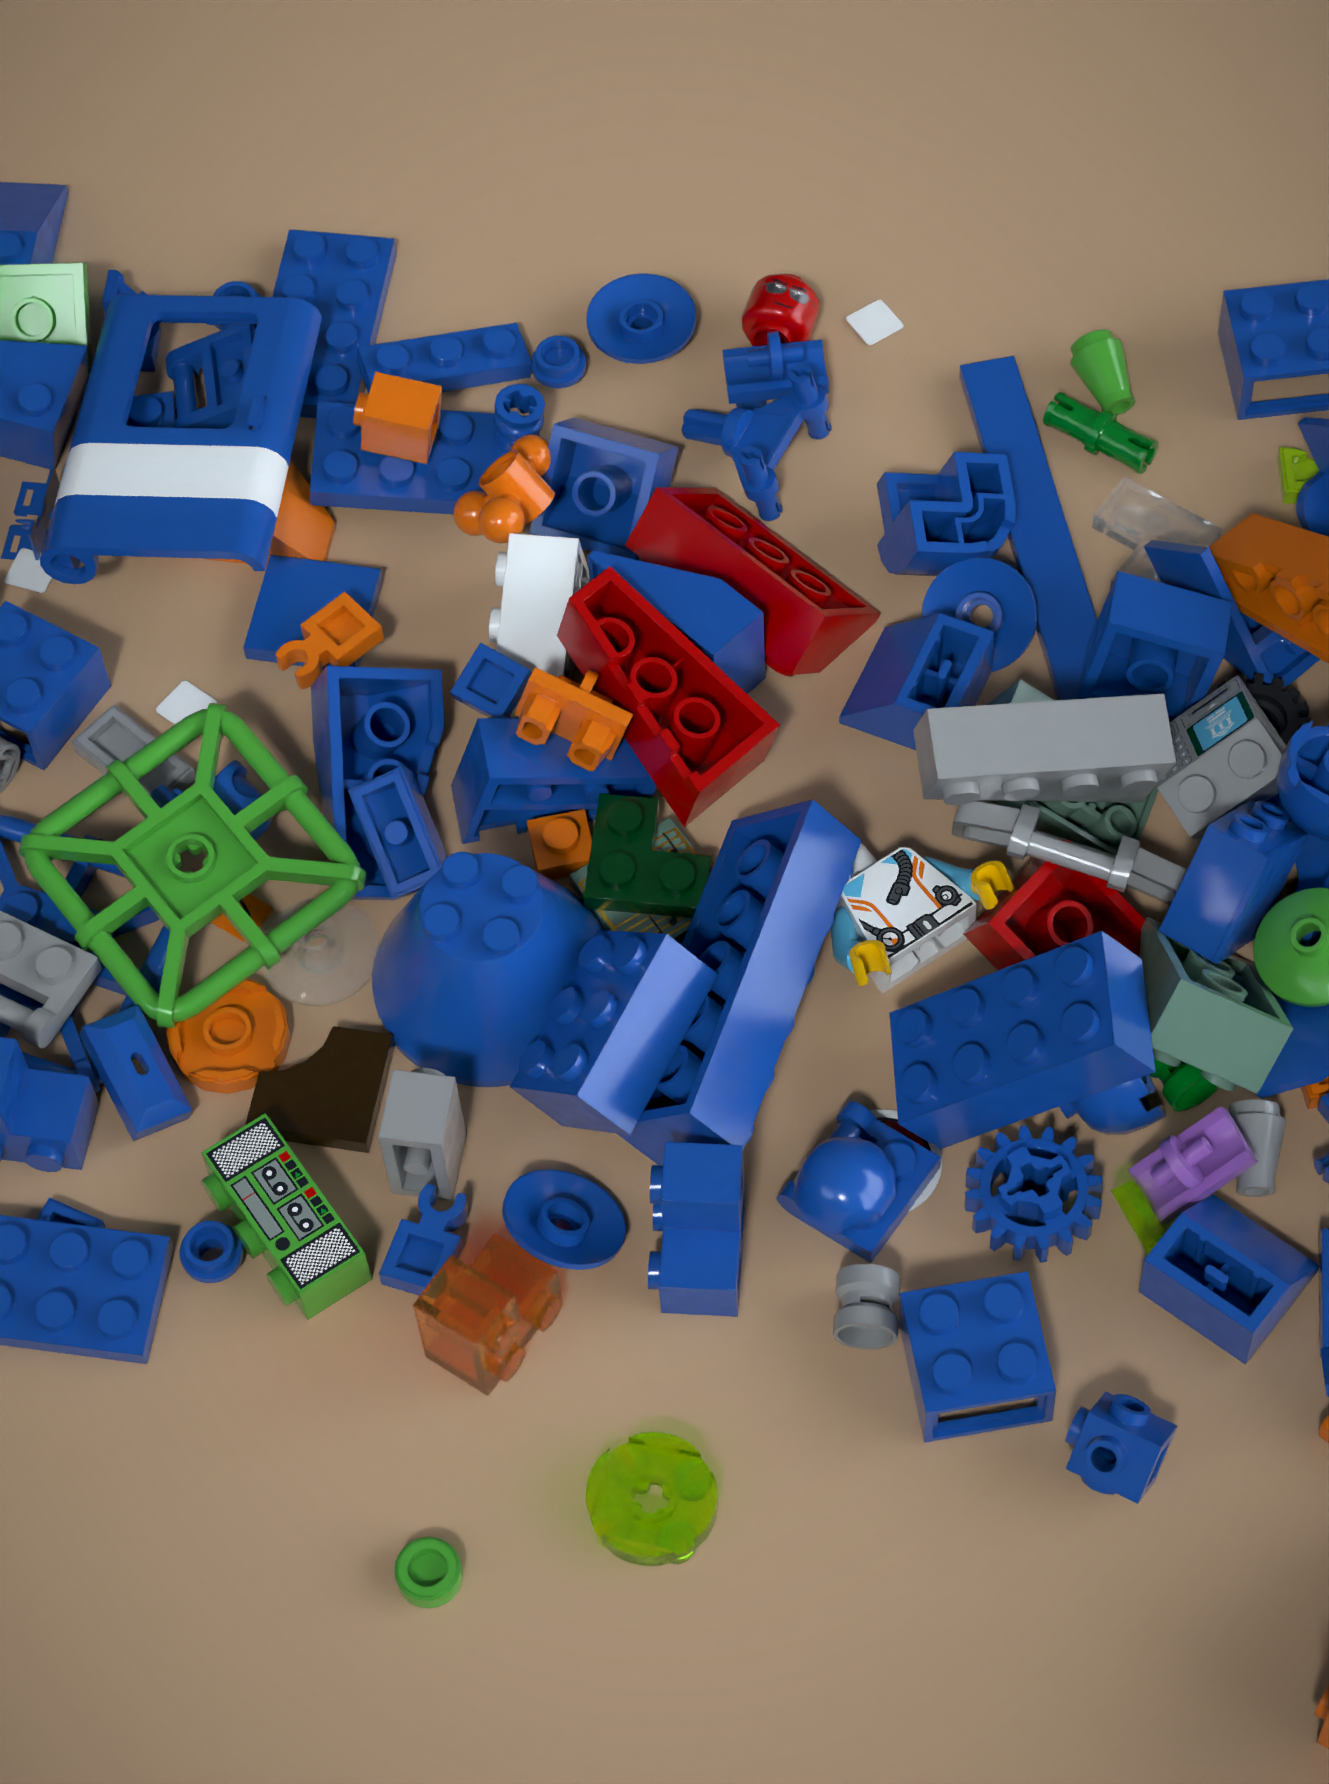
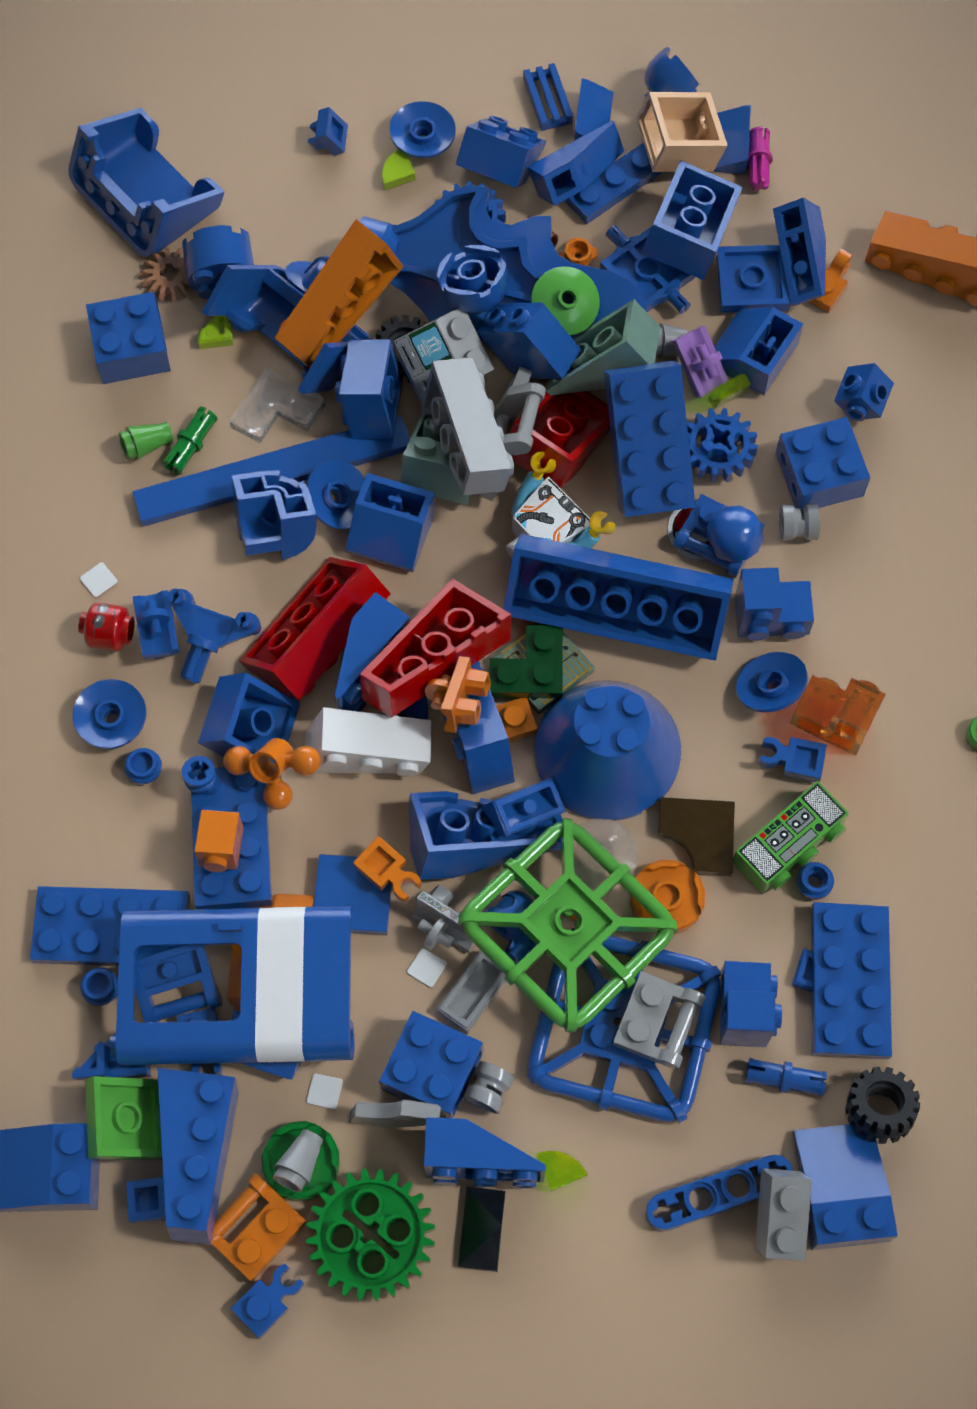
camera: 100 degrees left, 10 degrees up
(41, 504) = (271, 1098): blue piece -> none
(143, 1101) = (696, 952): blue piece -> none
(262, 704) = (440, 920): none -> light grey hips
(422, 1132) = (736, 758): light grey brick -> none
(452, 358) = (148, 836): blue plate -> none
(491, 683) = (427, 754): blue plate -> none
(613, 1030) = (663, 656): blue brick -> none
(670, 1532) = (922, 641): clear neon green plate -> none

